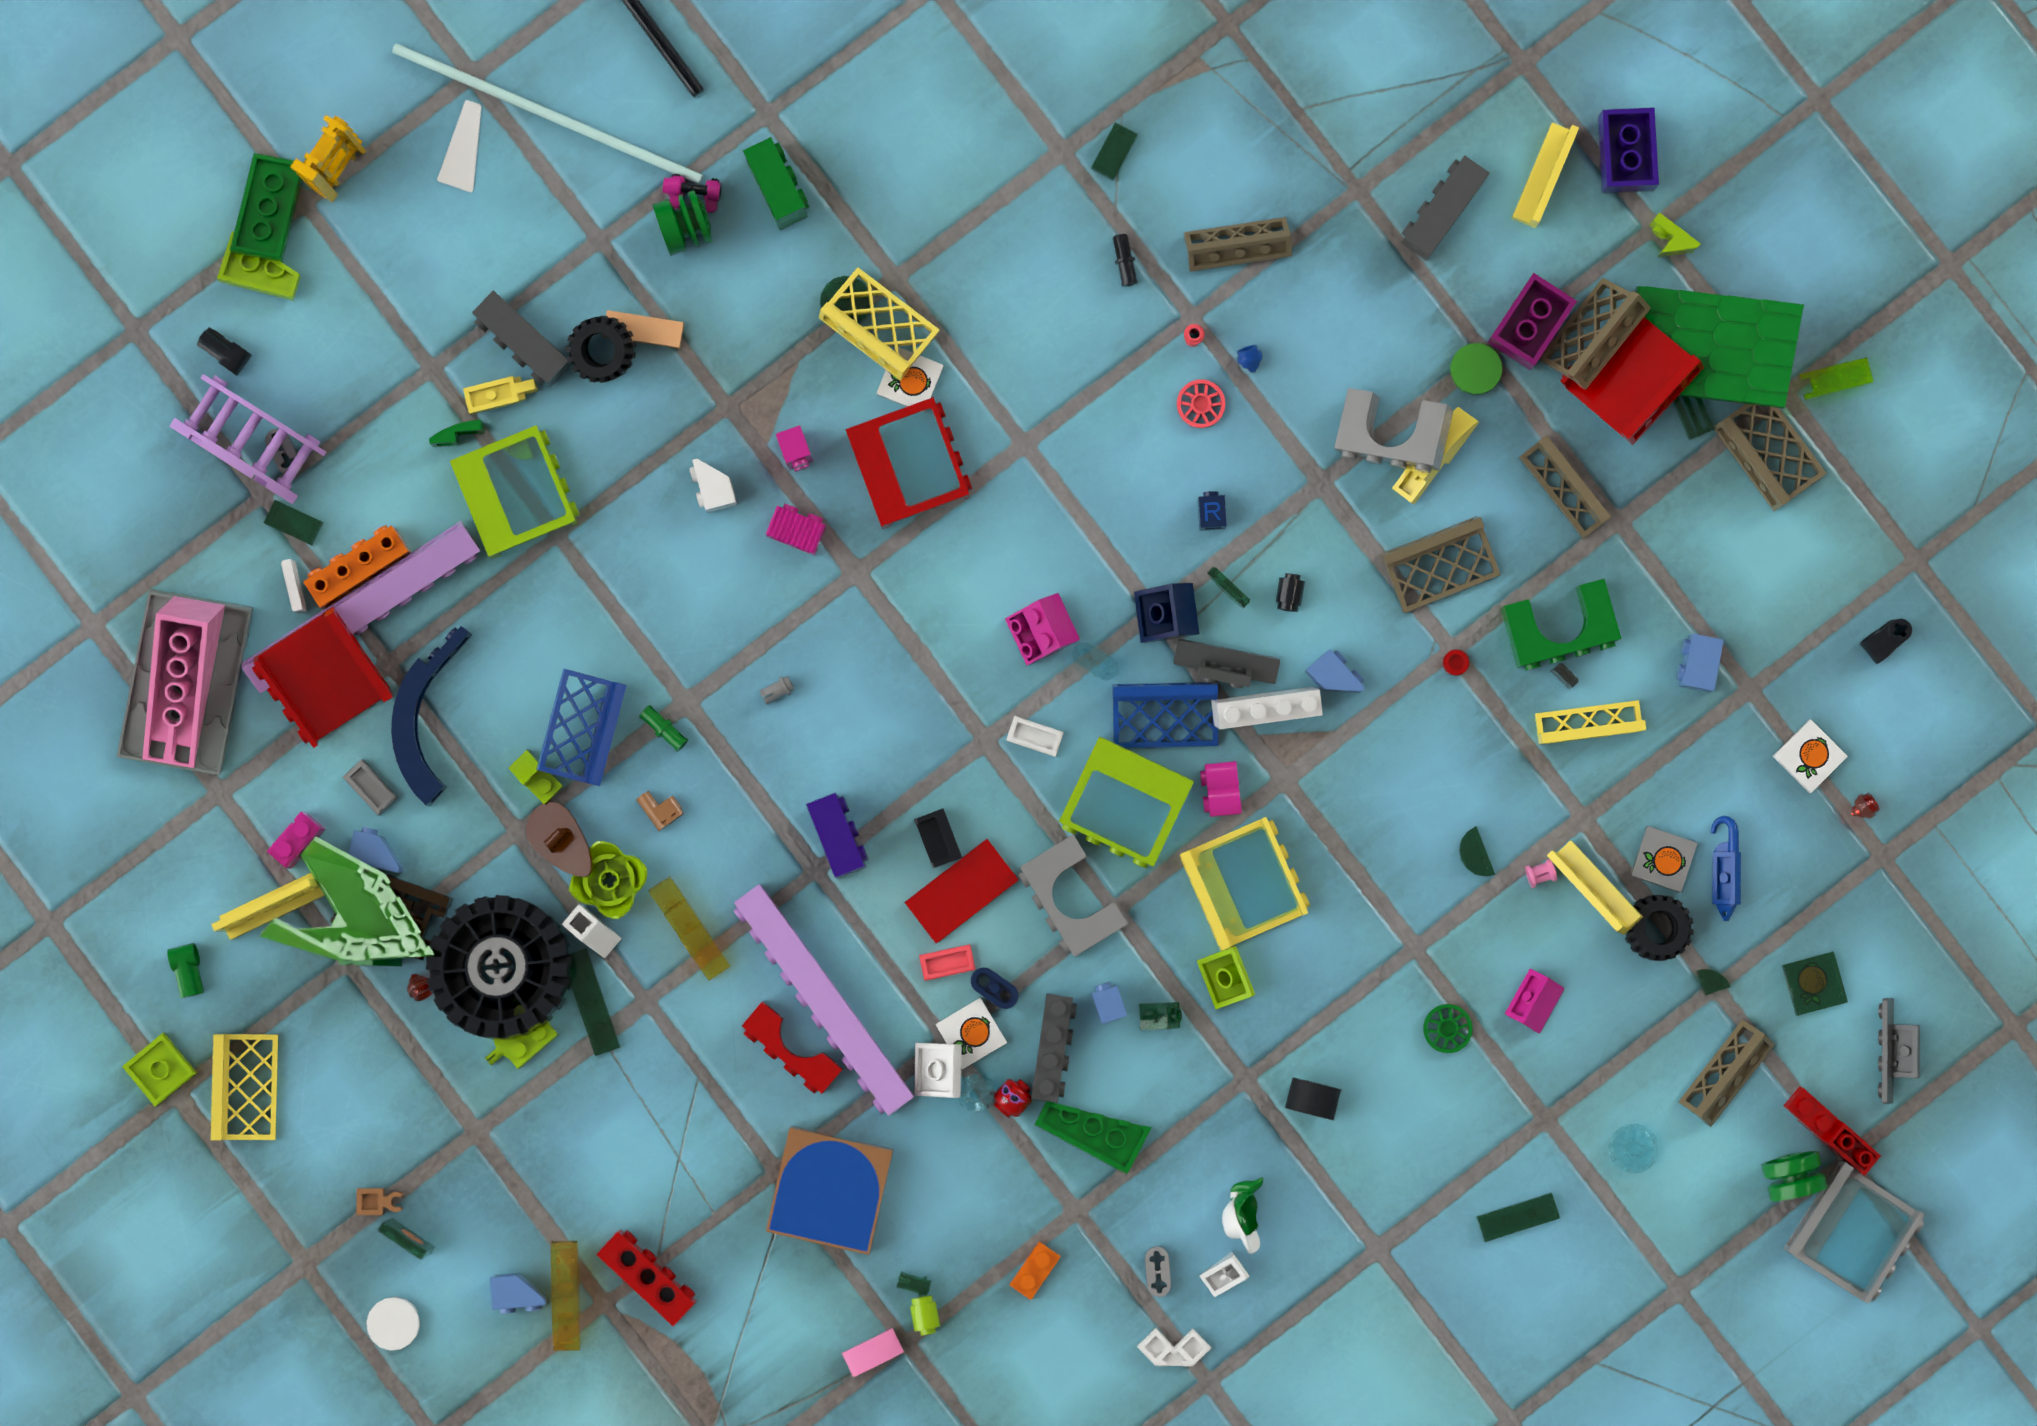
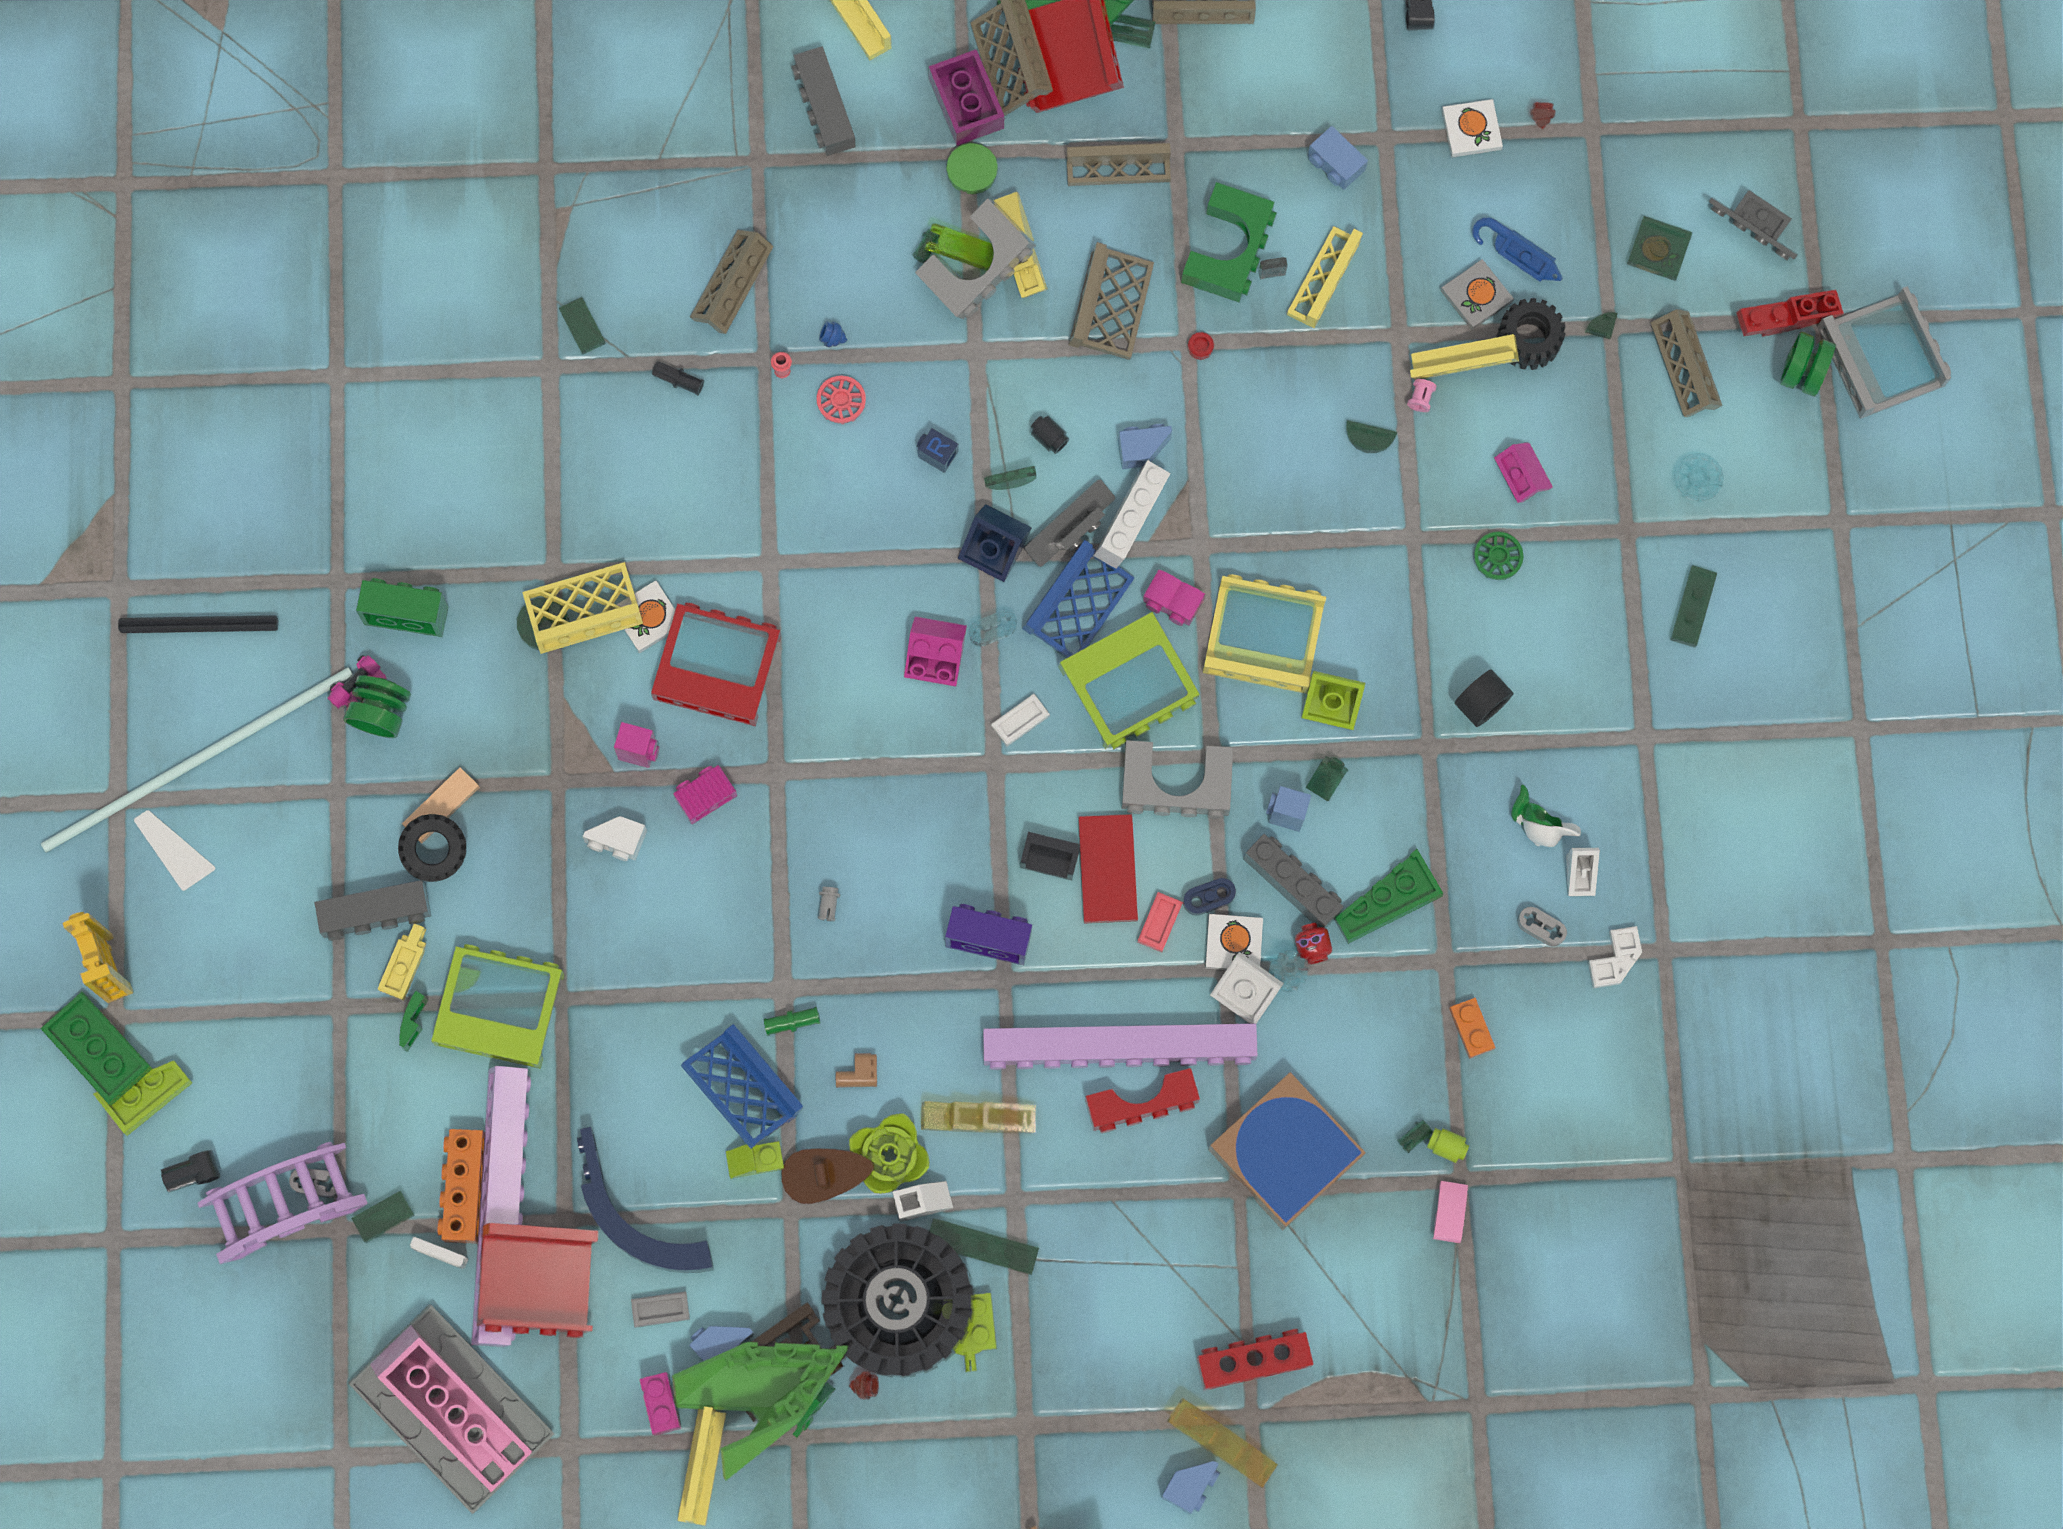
camera: 60 degrees left, 10 degrees down
(1381, 380) = (921, 253): none -> clear green pin
(1398, 409) = (961, 247): none -> clear neon green hinge

